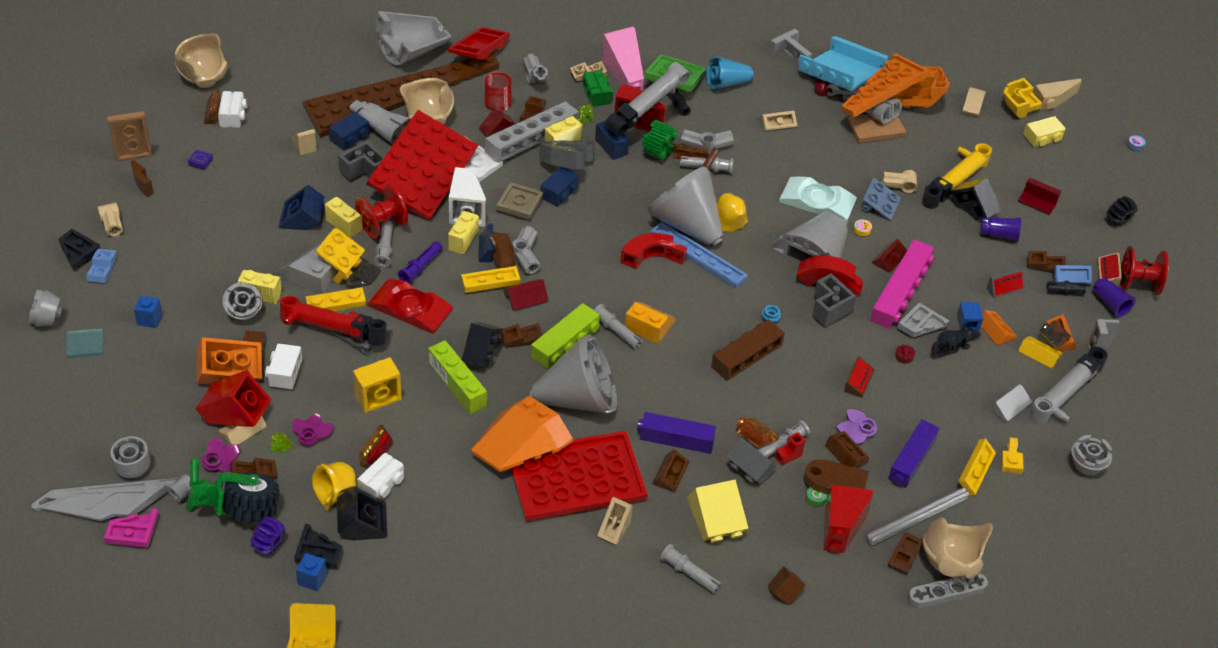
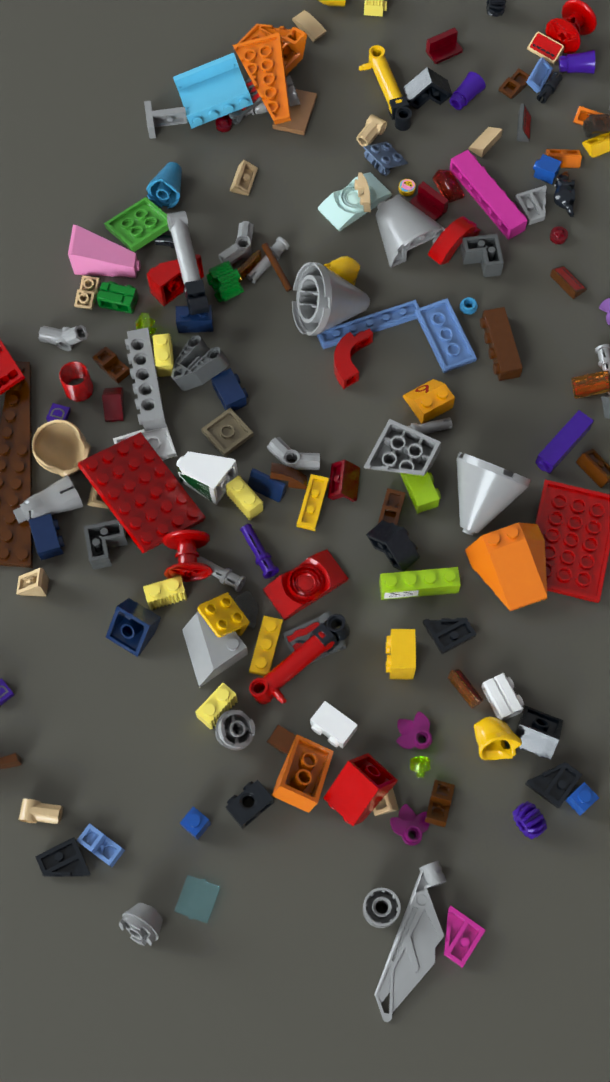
camera: 55 degrees left, 20 degrees up
(180, 340) = (244, 815): none -> black brick
(246, 495) = (482, 821): piece -> none
(423, 418) = (449, 632): none -> black wing
(465, 98) = (58, 412): none -> dark purple tile
(571, 305) = (403, 450): none -> light grey wedge
(726, 308) = (445, 335): none -> medium blue tile
(824, 194) = (363, 192): none -> tan slope
(857, 248) = (430, 201): none -> dark red panel
(962, 265) = (486, 141): none -> tan slope

